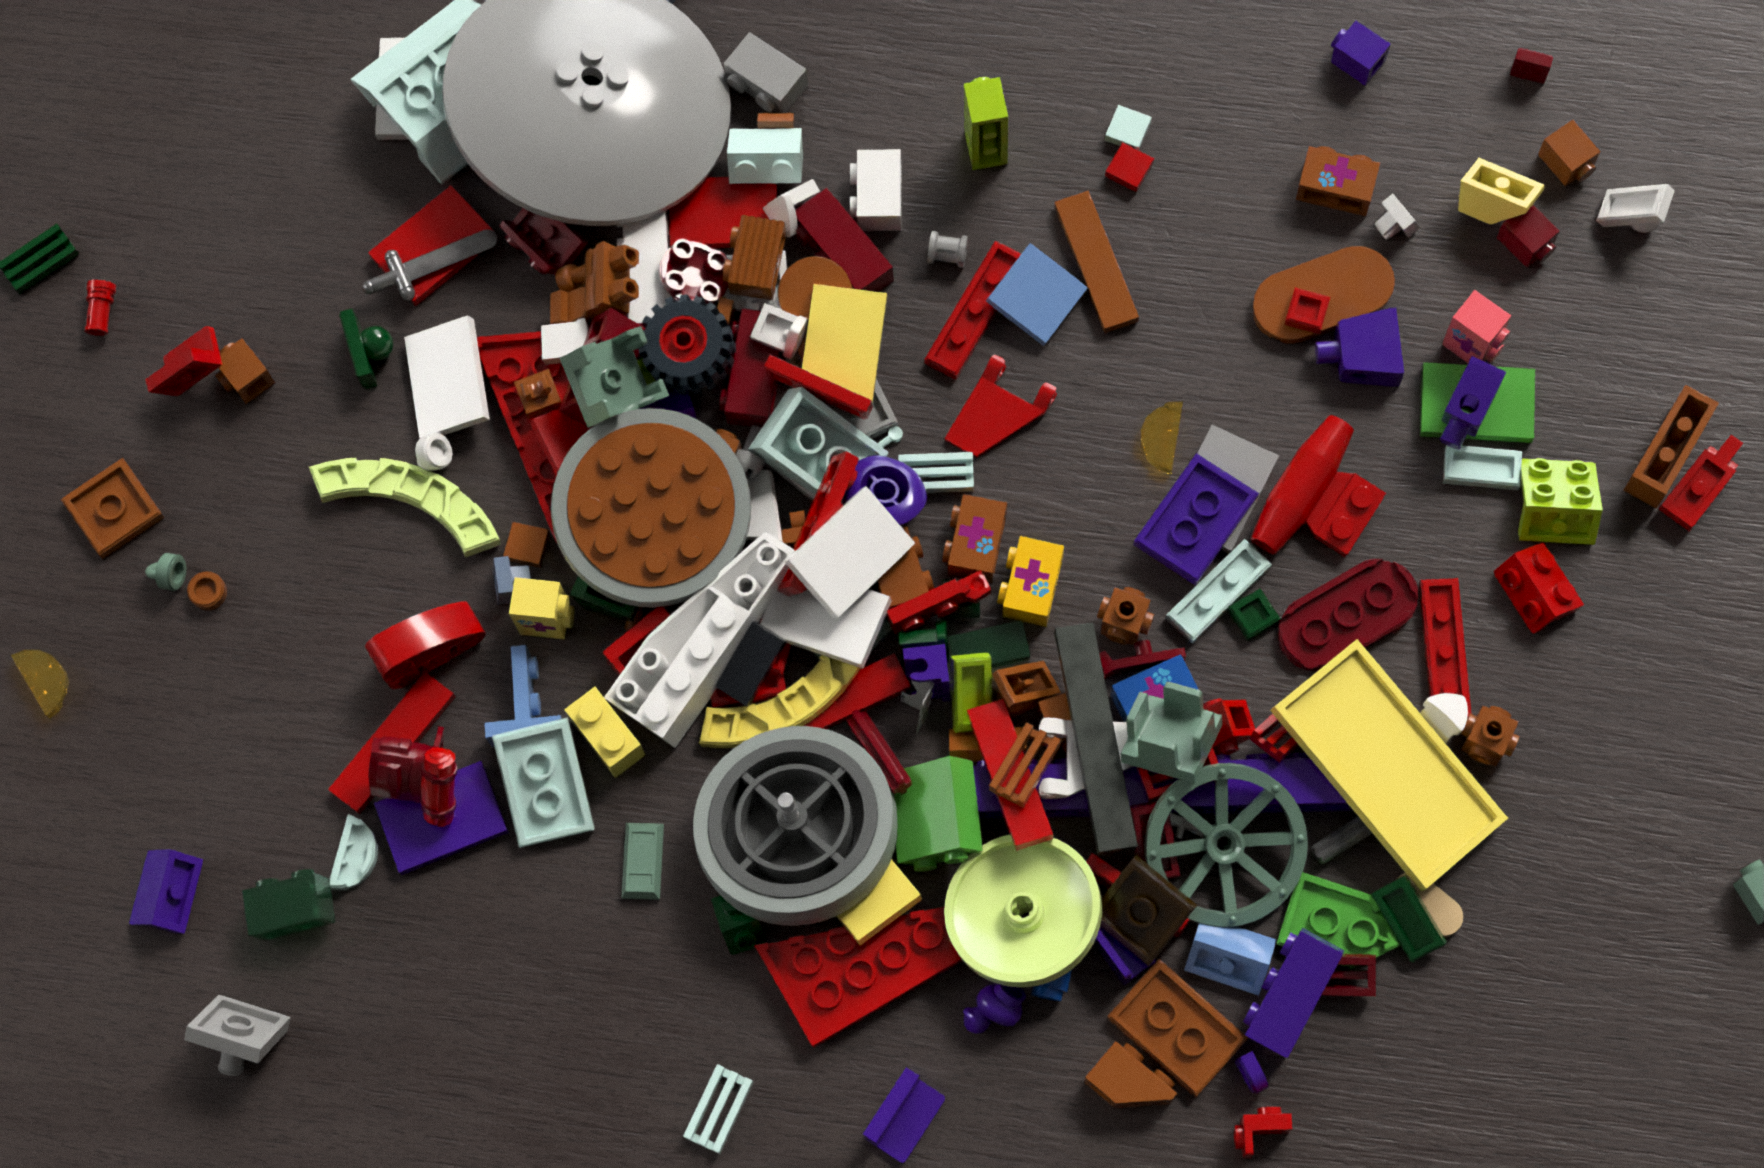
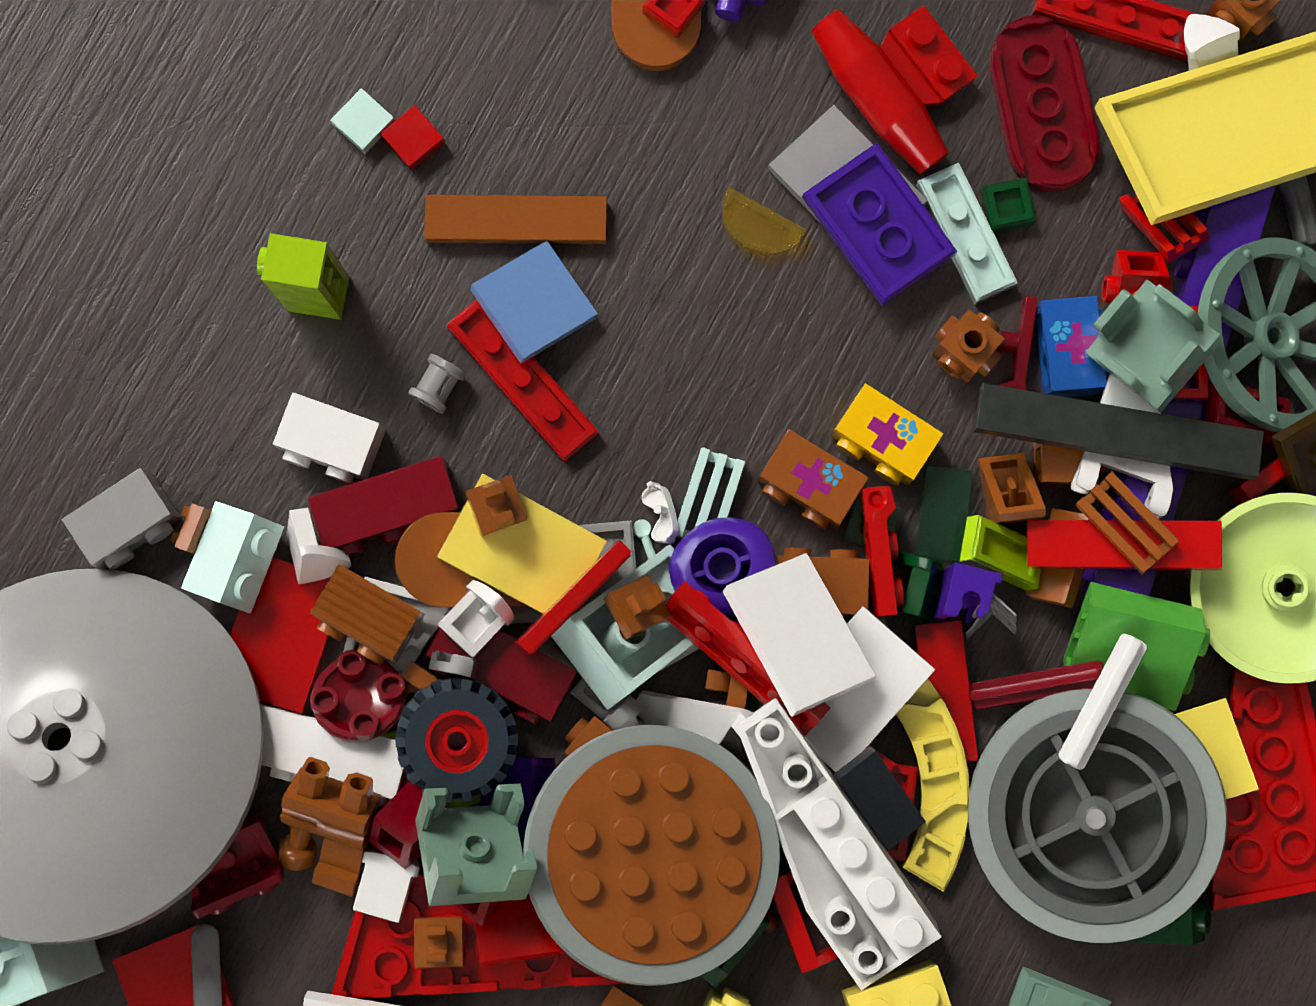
camera: 75 degrees left, 10 degrees up
(741, 328) = (453, 664): none -> flat silver tile
(828, 435) = (637, 606): none -> dark orange tile
(866, 309) = (496, 505): none -> dark orange tile
(879, 788) = (1102, 701): none -> white axle
(917, 439) = (660, 500): none -> white piece
(994, 412) = (660, 404): red flag -> none

